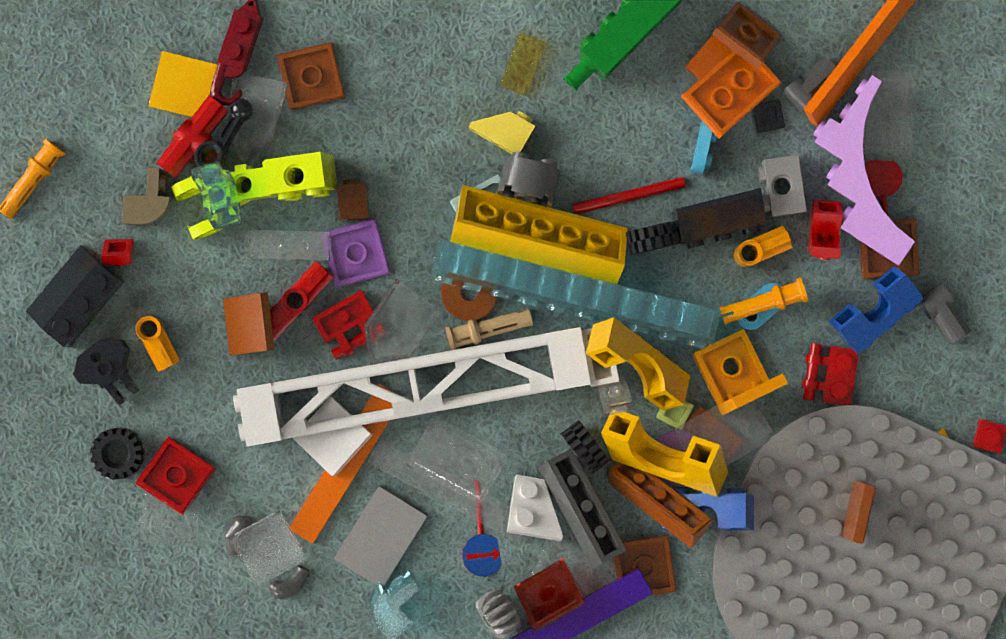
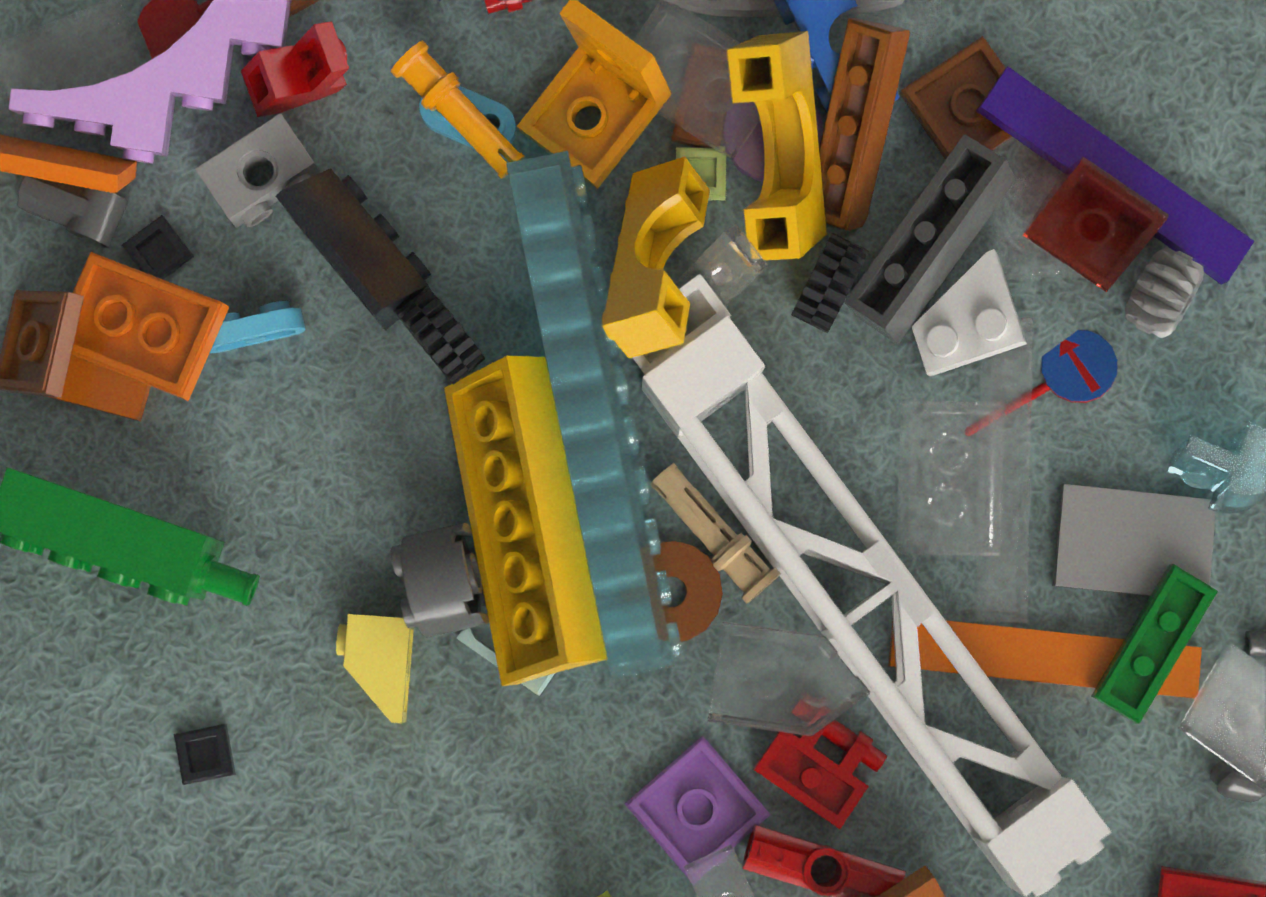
camera: 115 degrees left, 5 degrees down
(326, 520) = (1154, 643): none -> green tile
(334, 447) = (1032, 685): white tile -> none
(353, 200) = (614, 855): reddish brown brick -> none
(501, 22) = (204, 754): none -> black tile
(522, 64) = (257, 685): clear yellow tile -> none
(629, 195) = (390, 410): red bar -> none
(764, 246) = (371, 157): light orange piece -> none

